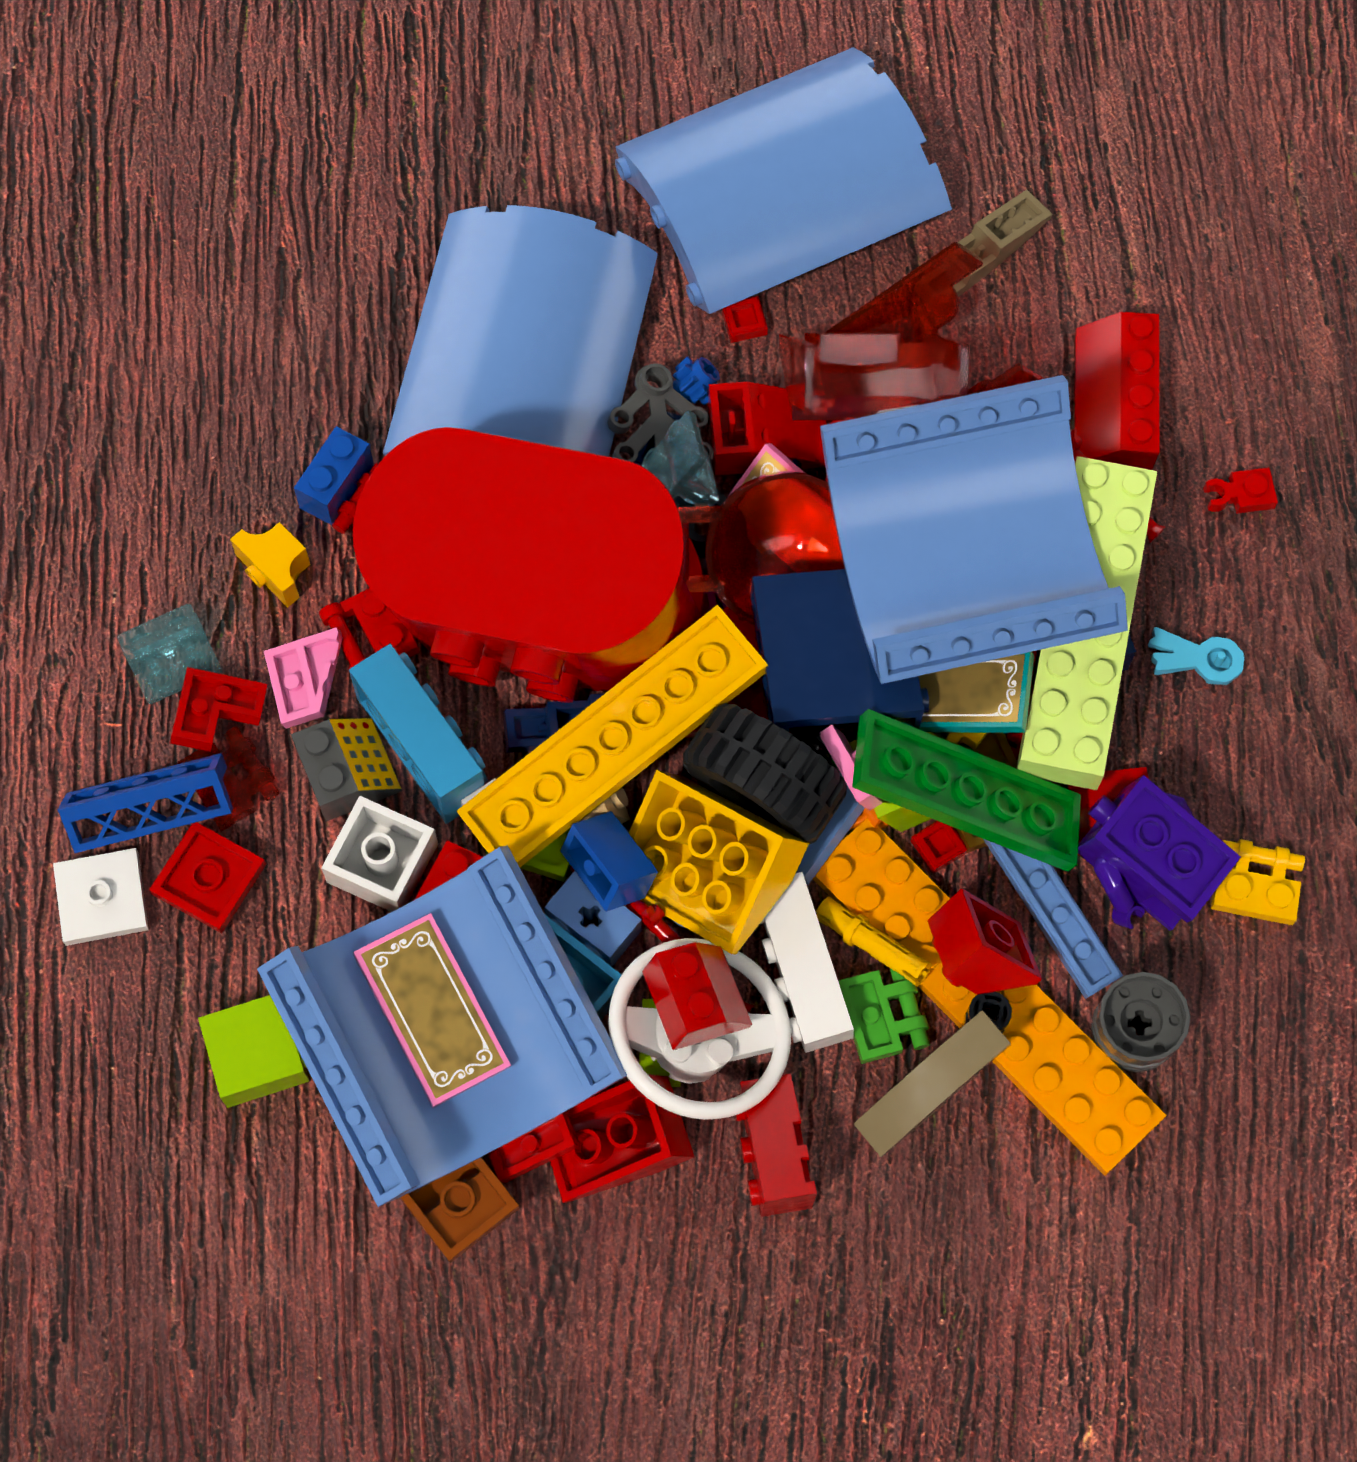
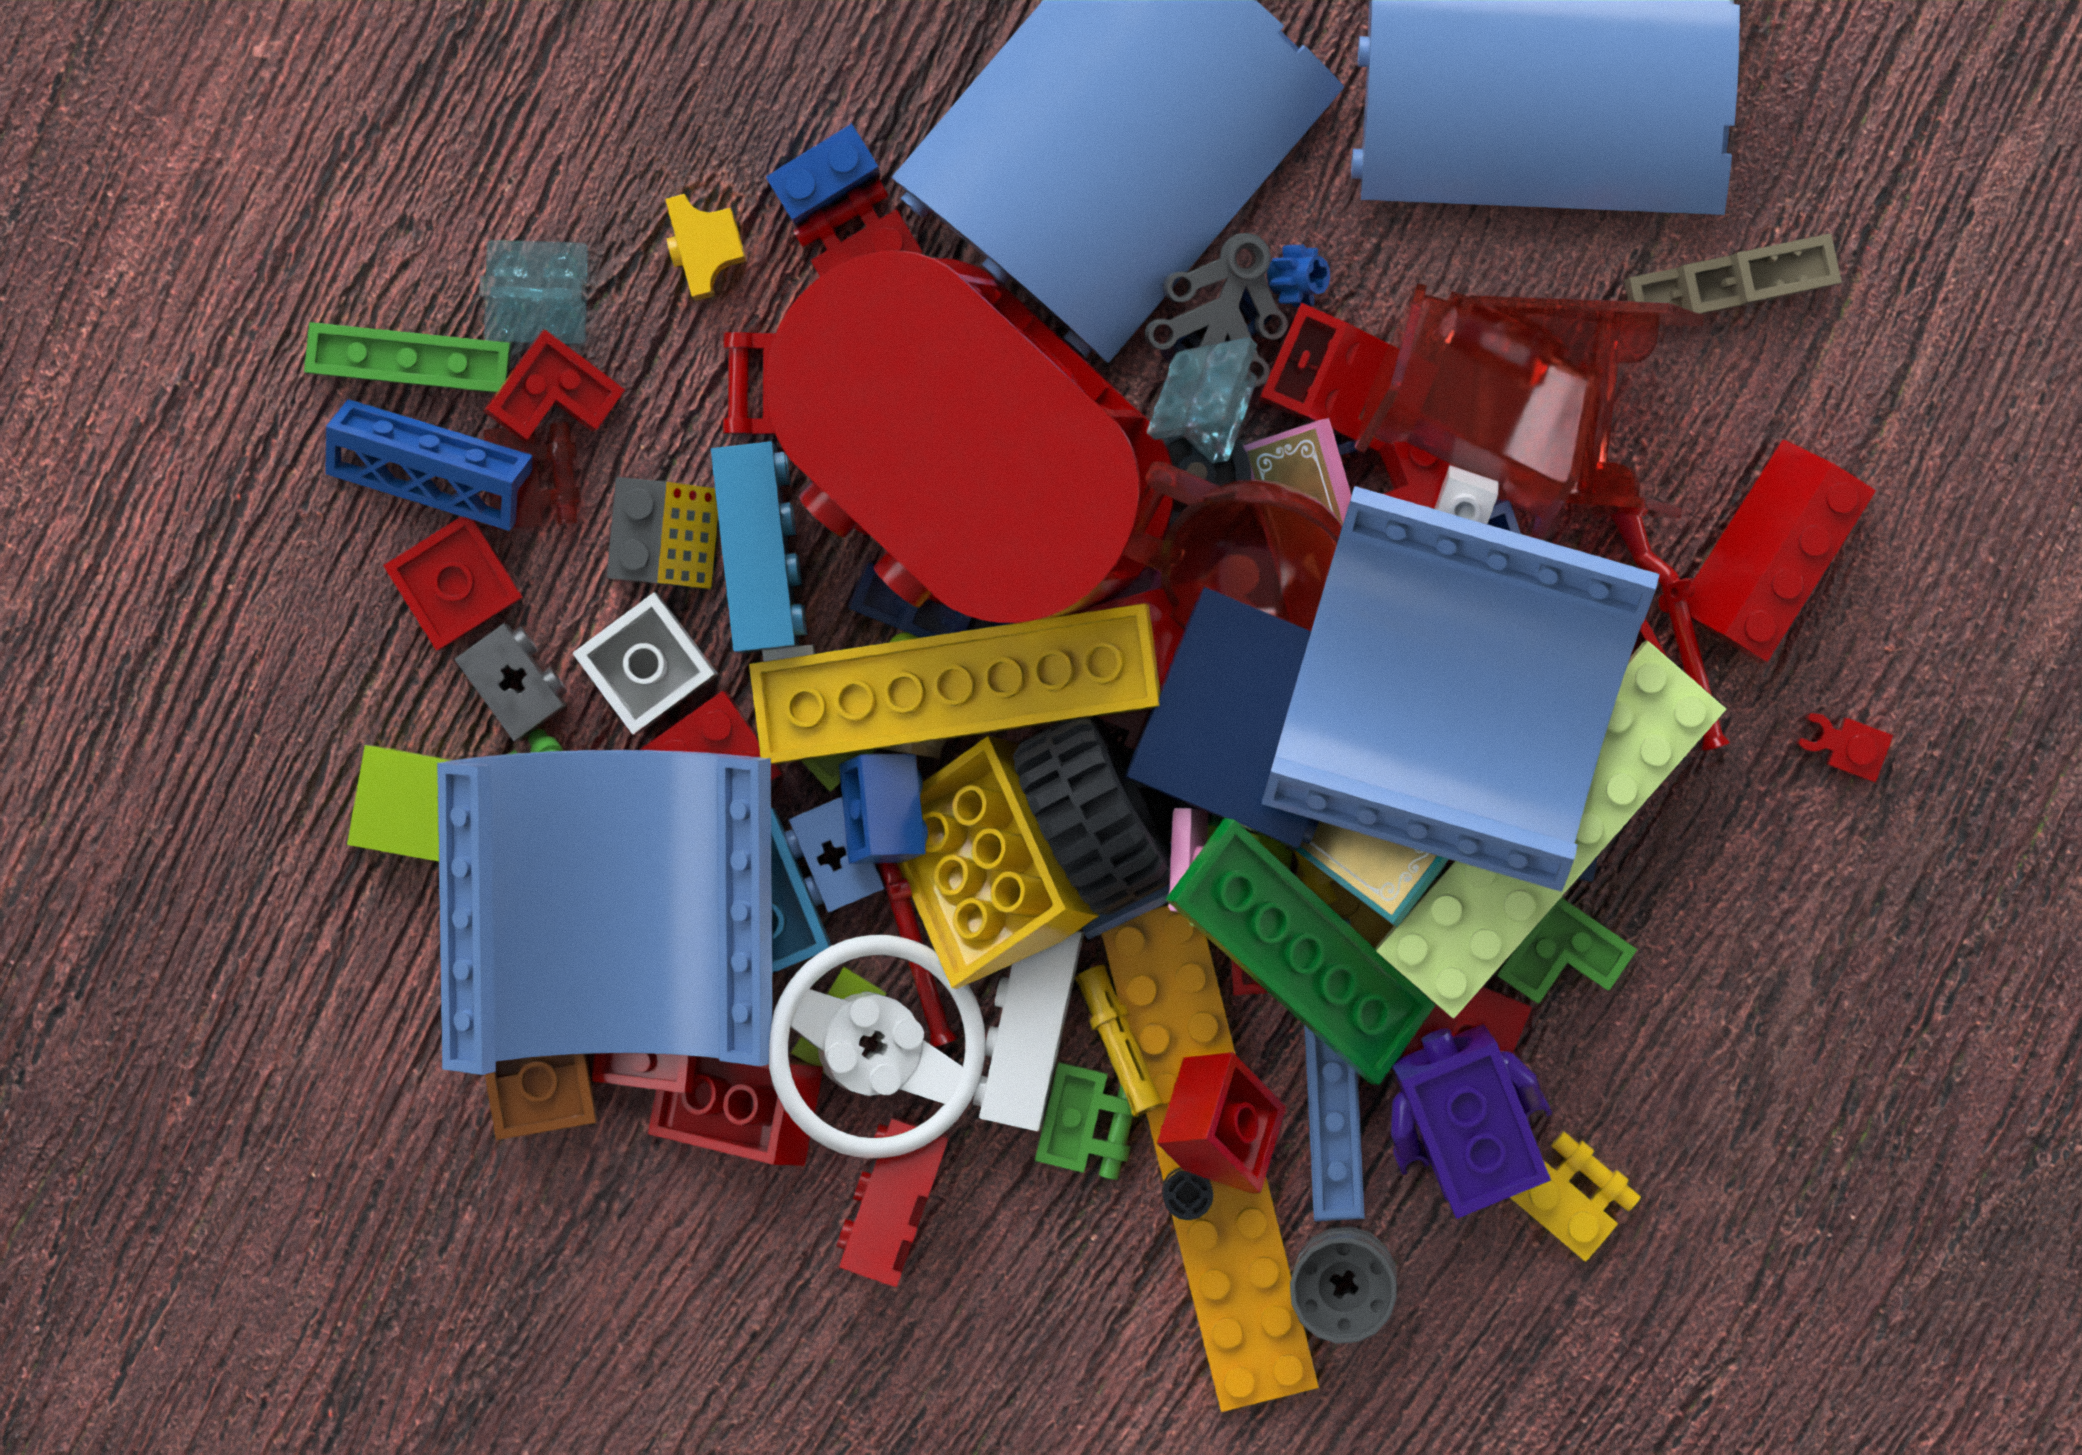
camera: 30 degrees right, 20 degrees up
(95, 742) = (407, 357): none -> bright green plate
(100, 896) = (330, 539): white plate -> none
(272, 903) = (486, 669): none -> flat silver brick
(303, 676) = (668, 403): bright pink wing -> none
(431, 1010) = (605, 881): pearl gold tile -> none
(695, 994) = (888, 1018): red slope -> none
(745, 320) = (1403, 222): red tile -> none
(932, 1083) = (1089, 1229): dark tan slope -> none
(1142, 708) = (1564, 938): none -> bright green plate
(1215, 660) = (1685, 927): medium azure piece -> none

